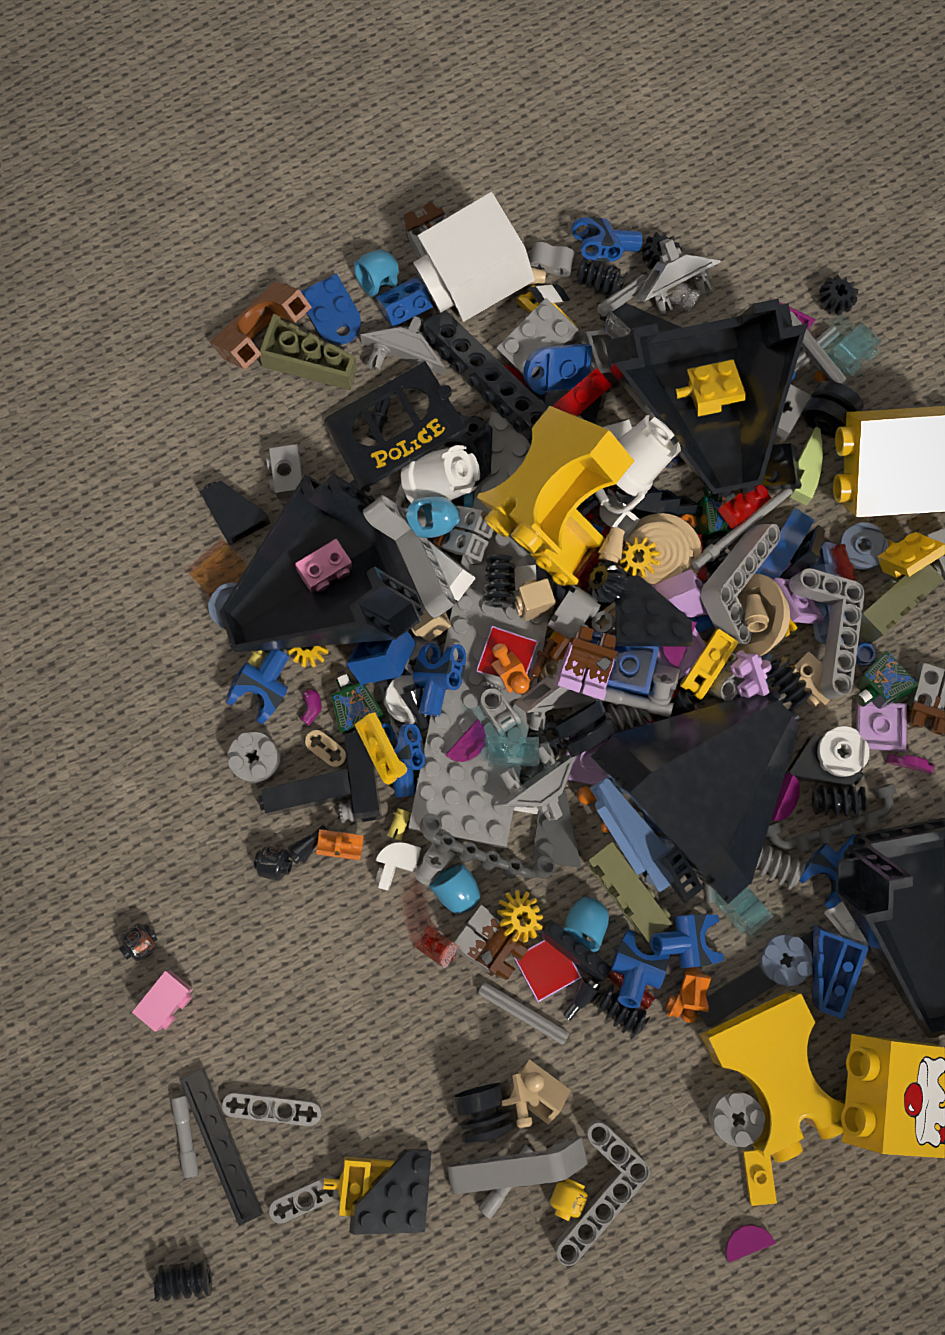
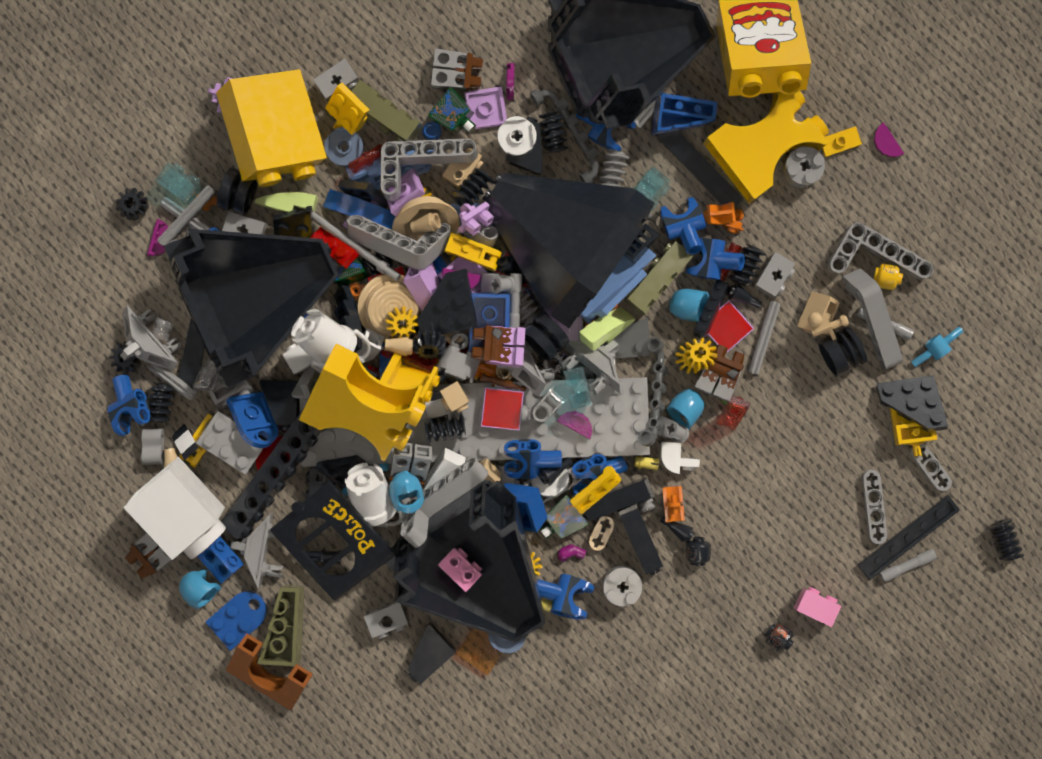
camera: 100 degrees left, 10 degrees up
(461, 1247) = (937, 347): none -> dark azure piece
(510, 670) = (515, 403): orange piece -> none
(579, 809) = (605, 328): none -> yellowish green slope
(583, 393) = (275, 397): red plate -> none
(615, 1052) = (765, 281): none -> light grey brick
(713, 387) = (243, 292): yellow plate -> none
(787, 798) = (560, 171): magenta tile -> none
(800, 965) = (683, 139): sand blue plate -> none

